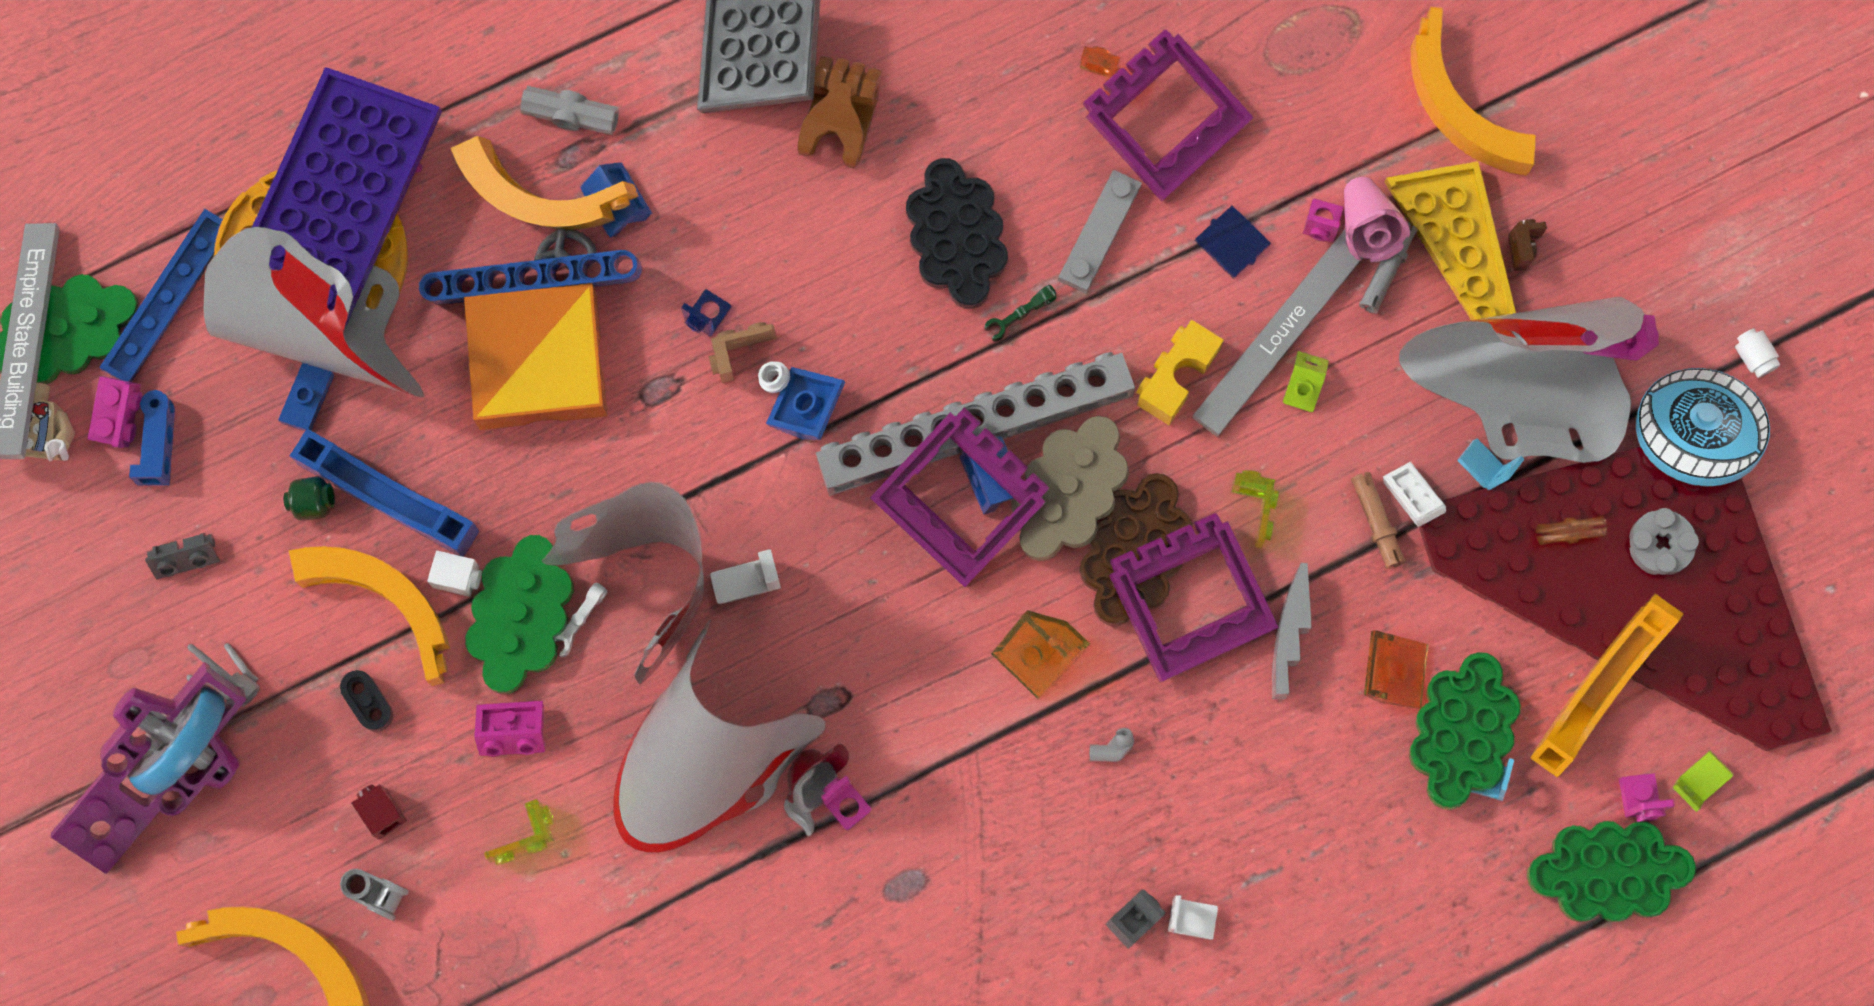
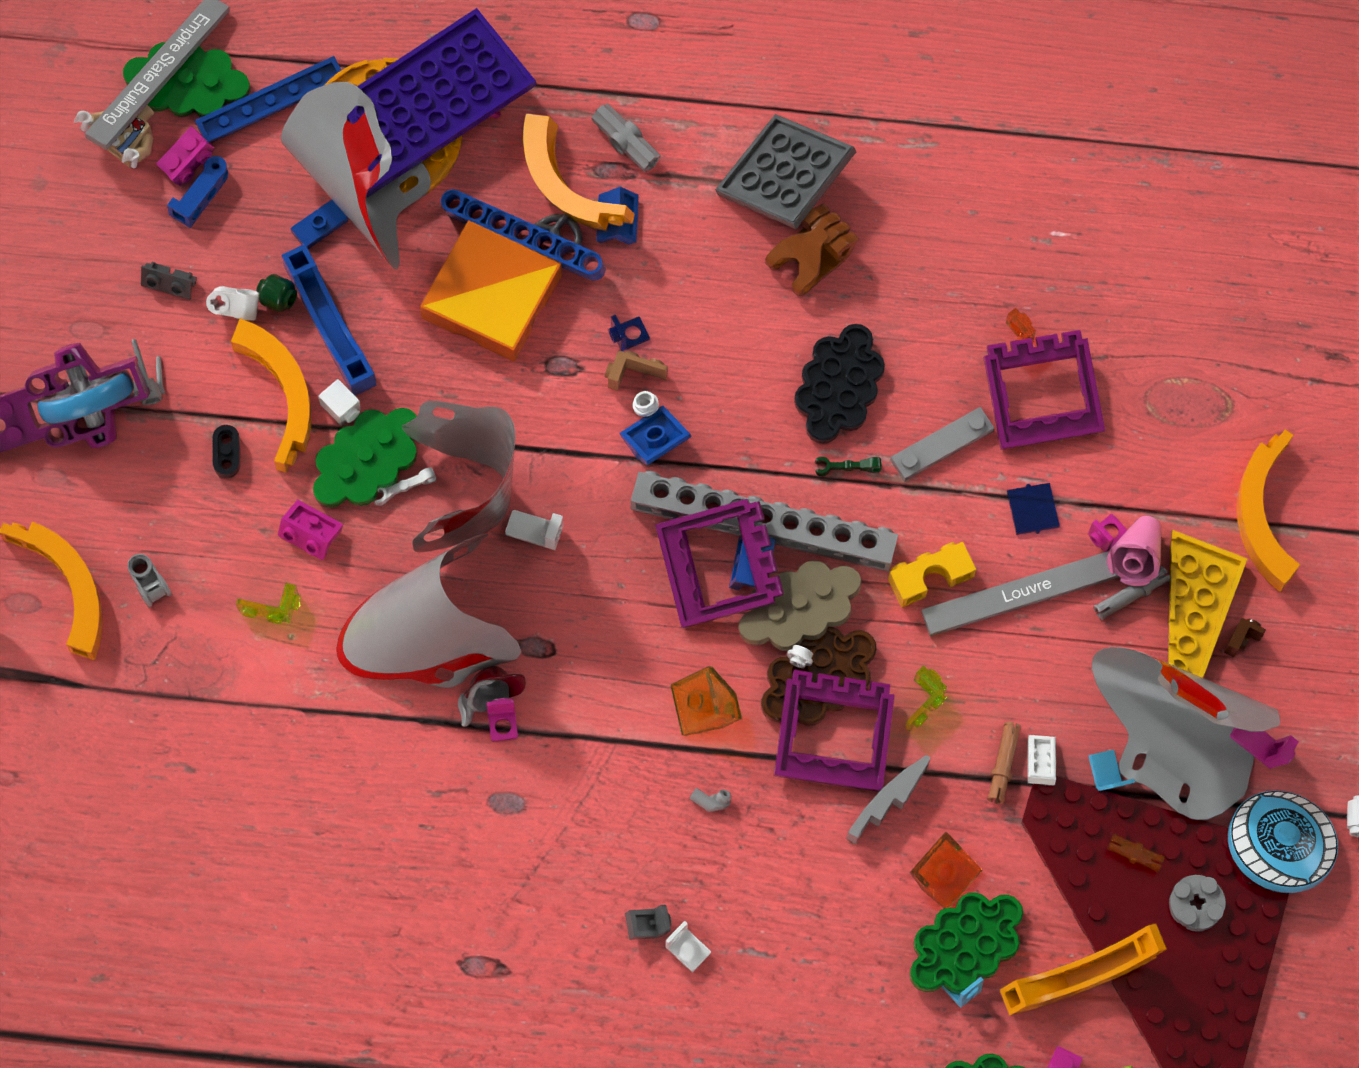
camera: 30 degrees right, 5 degrees down
(274, 534) = (238, 302): none -> white piece
(378, 810) = (186, 528): dark red brick -> none
(1108, 542) = (800, 656): none -> white plate
(1306, 382) = (1017, 635): lime bracket -> none

